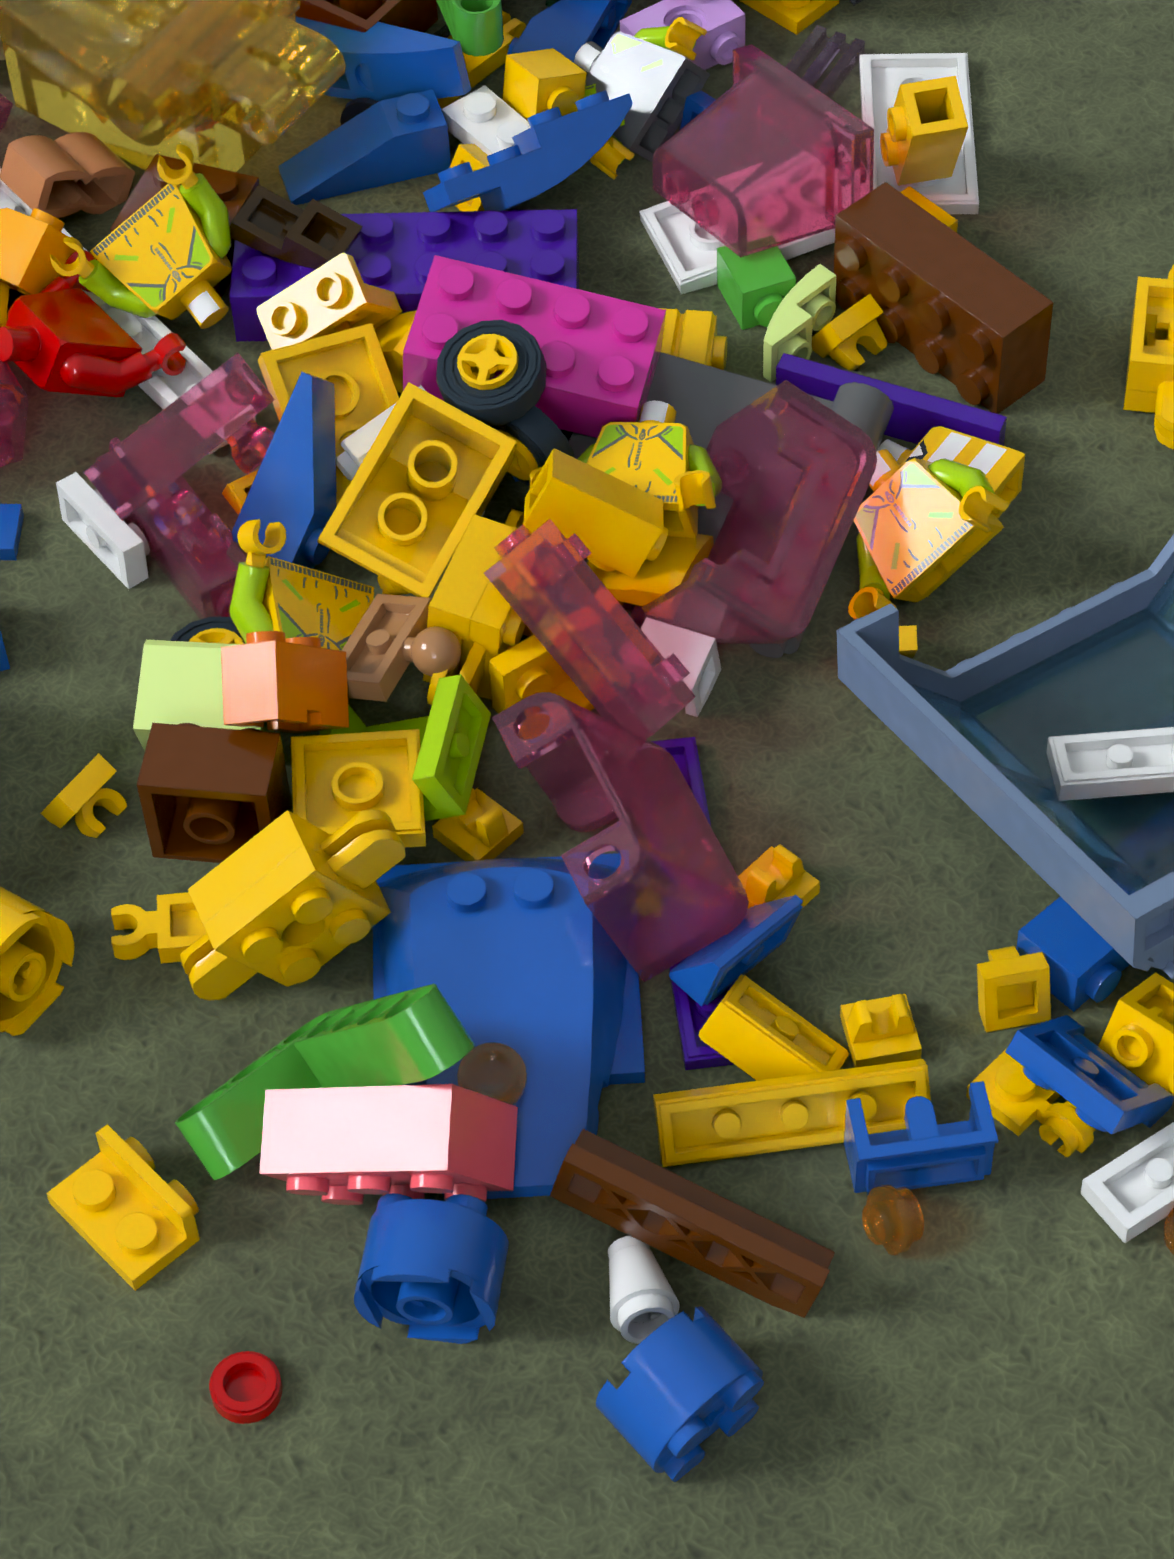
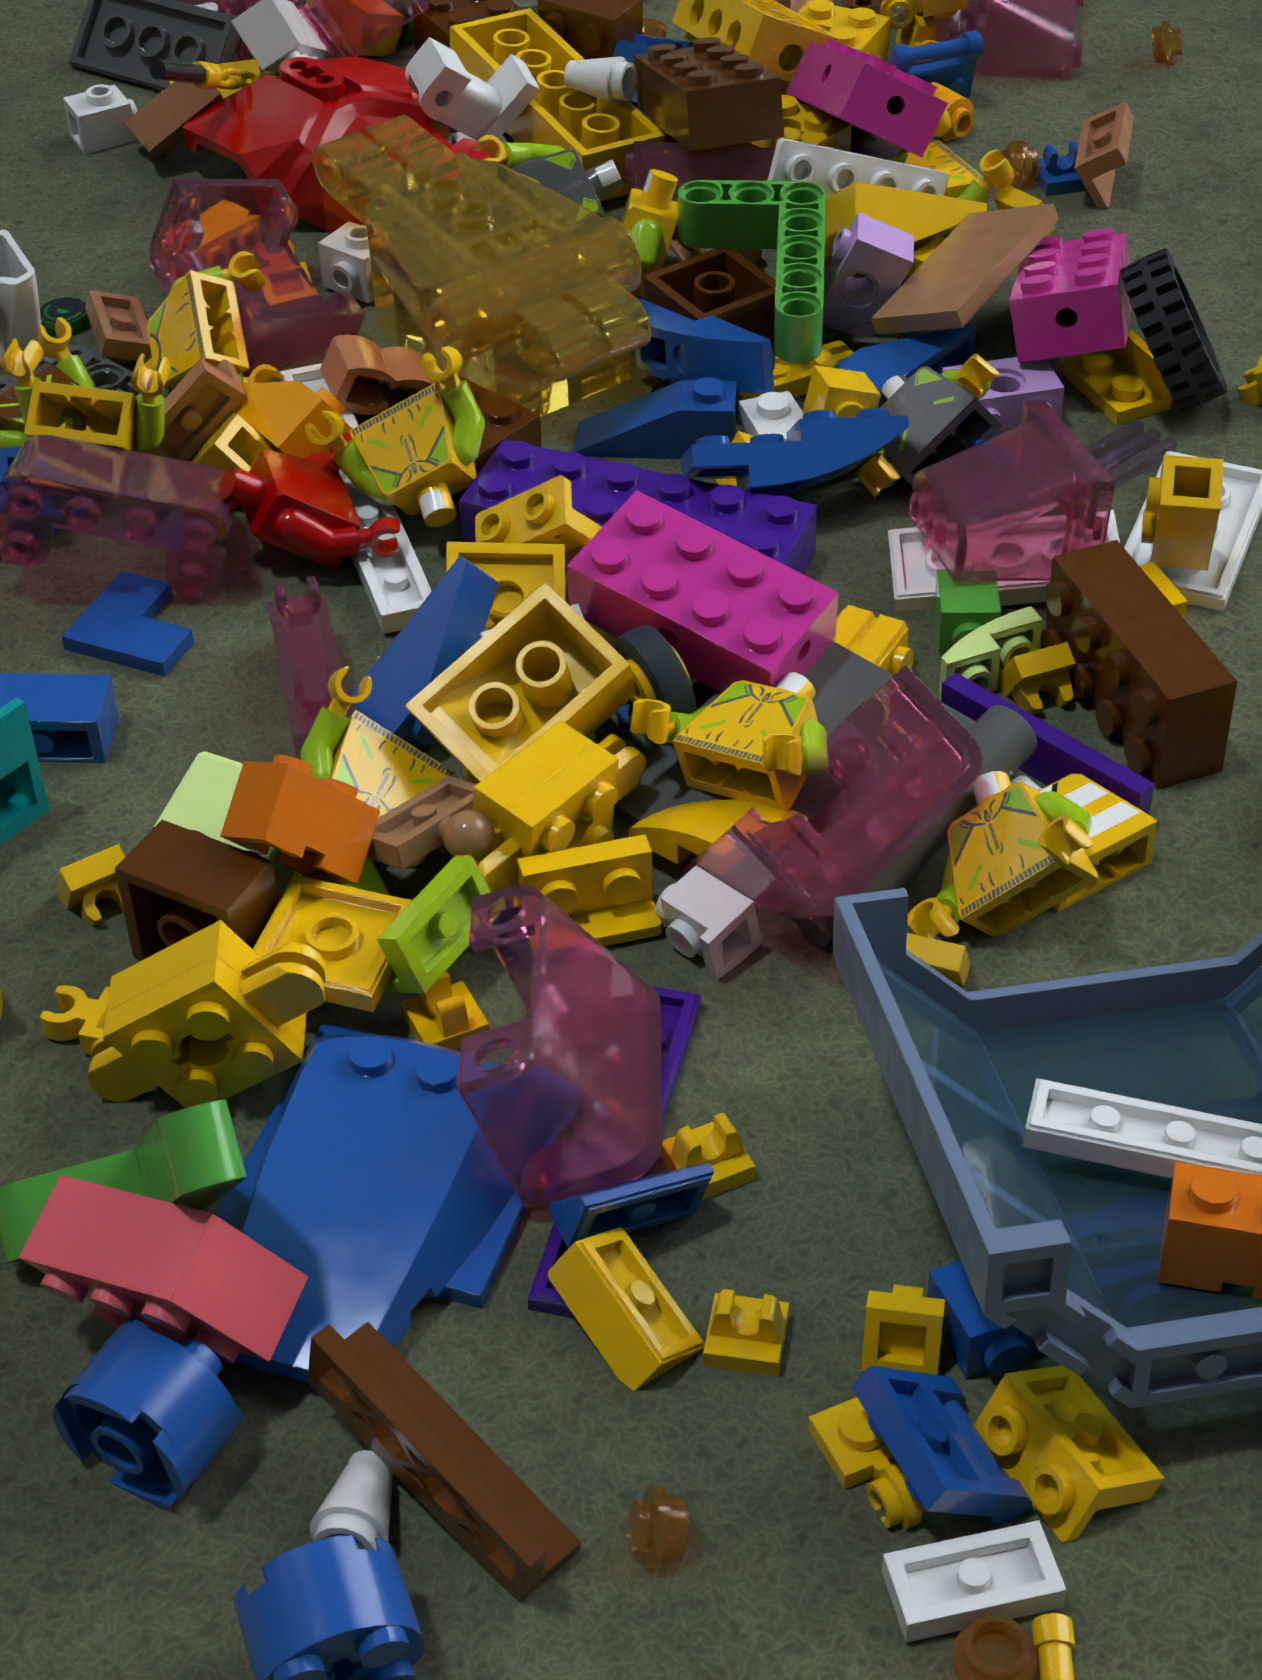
camera: 20 degrees right, 10 degrees down
(100, 528) = (245, 657): white plate -> none
(177, 438) = (328, 592): clear pink brick -> none
(292, 233) = (534, 455): dark brown slope -> none
(476, 355) = (634, 597): black wheel -> none
(494, 1072) = (305, 1238): clear orange plate -> none
(588, 629) = (618, 853): clear pink brick -> none
(607, 514) = (678, 752): yellow brick -> none
(783, 1111) = (610, 1383): yellow tile -> none
(923, 1151) = (715, 1467): blue window -> none

